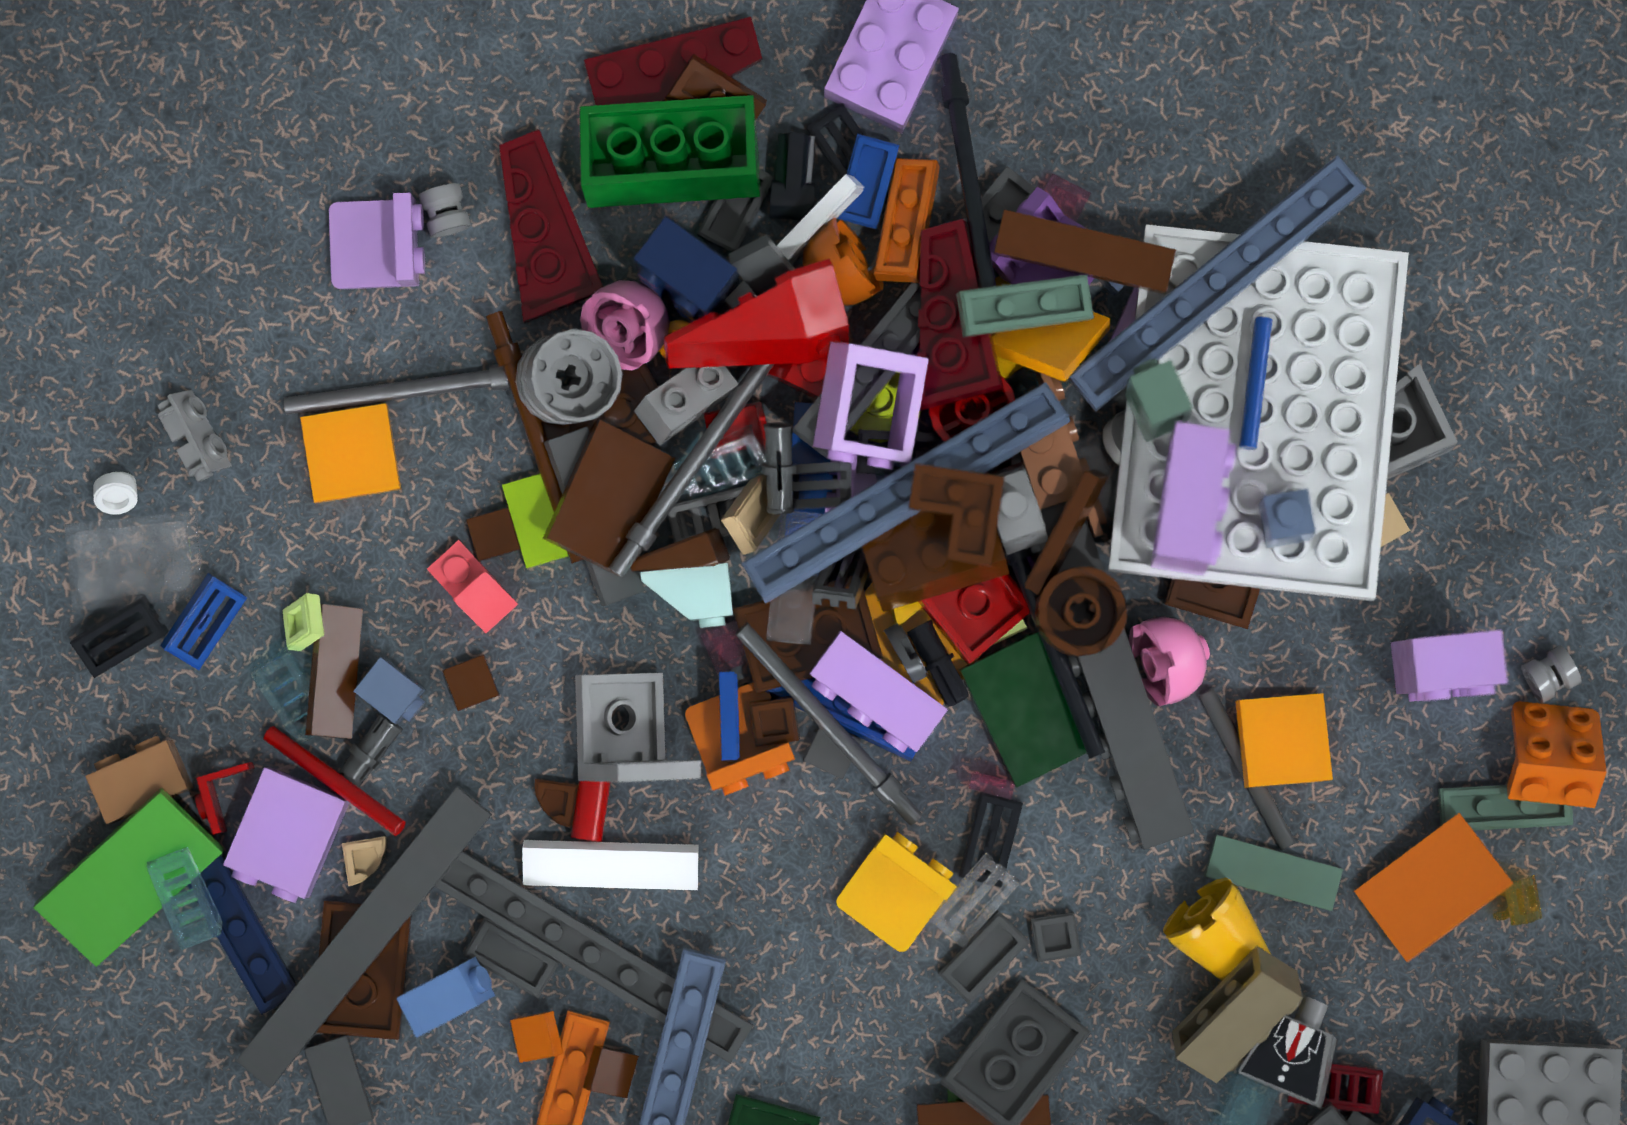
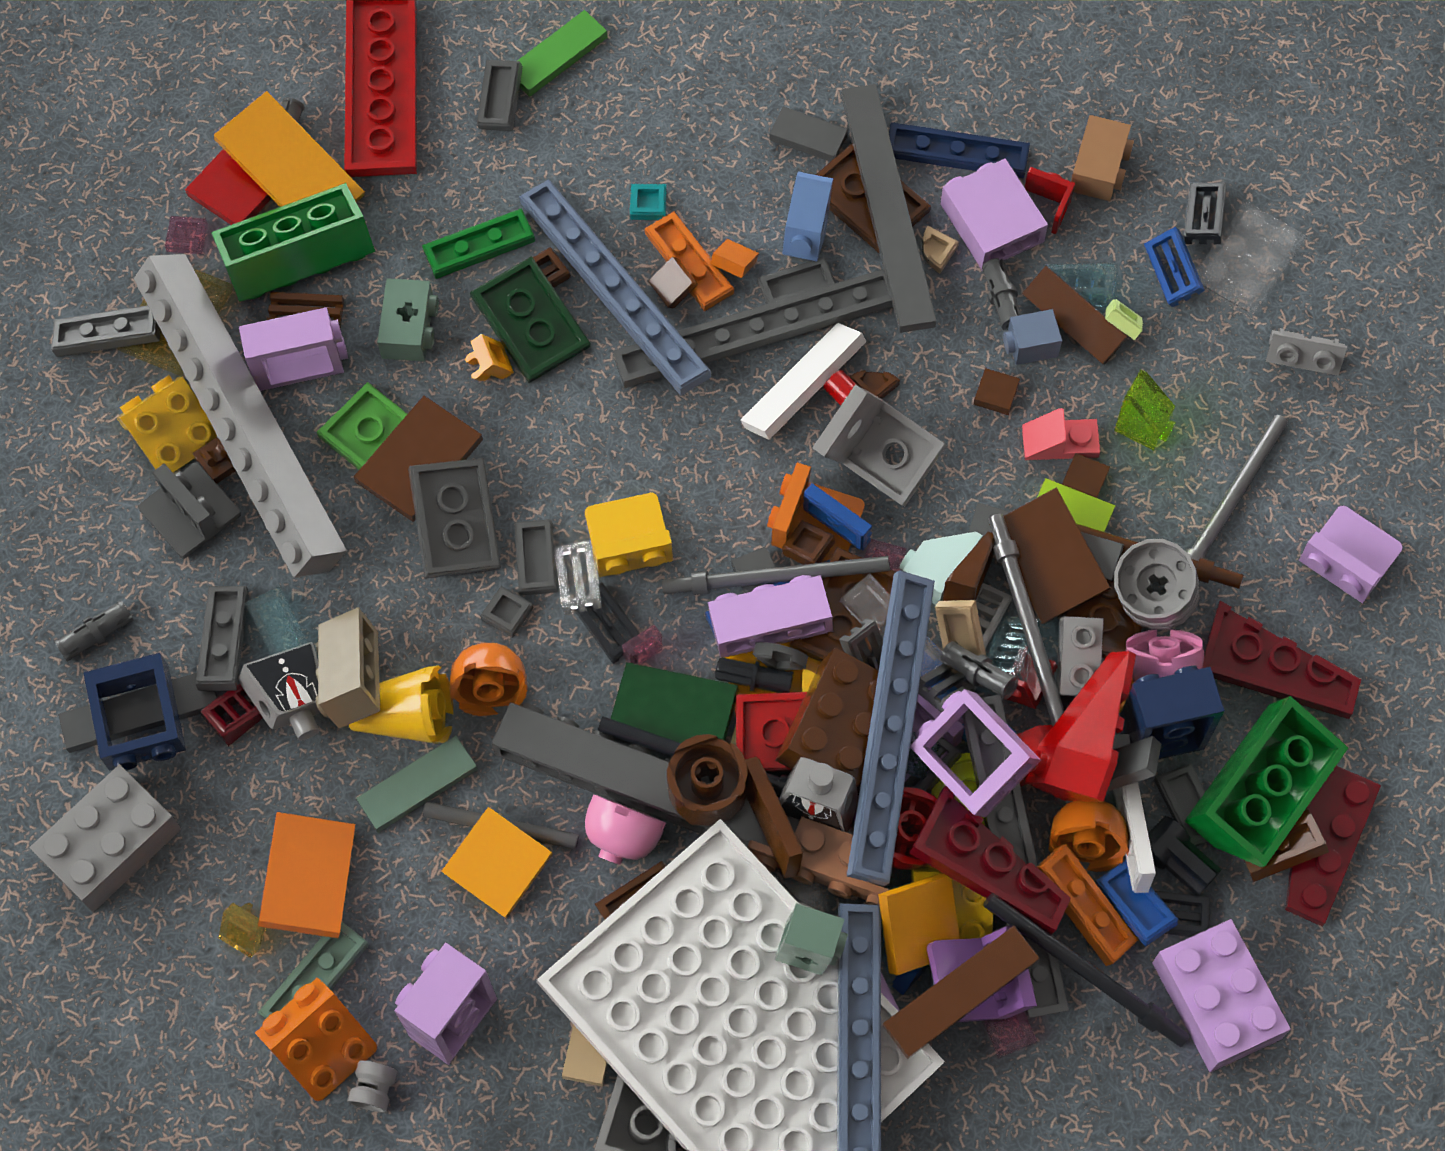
camera: 135 degrees right, 20 degrees down
(111, 887) = (1044, 107): bright green tile -> none
(115, 492) = (1305, 279): white tile -> none
(200, 931) = (982, 113): clear light blue slope -> none
(334, 780) = (1005, 259): red bar -> none
(350, 453) = (1214, 434): light orange tile -> none
(390, 523) = (1146, 413): none -> clear neon green slope
(444, 210) = (1348, 616): light grey wheel -> none
(970, 500) = (848, 749): reddish brown plate -> none
(1024, 305) = (956, 914): sand green tile -> none
(1134, 894) = (487, 678): none -> orange cylinder
(1193, 499) = (719, 899): lavender brick -> none
(1255, 383) = (762, 1032): blue bar -> none
(1287, 518) = (647, 959): sand blue brick -> none

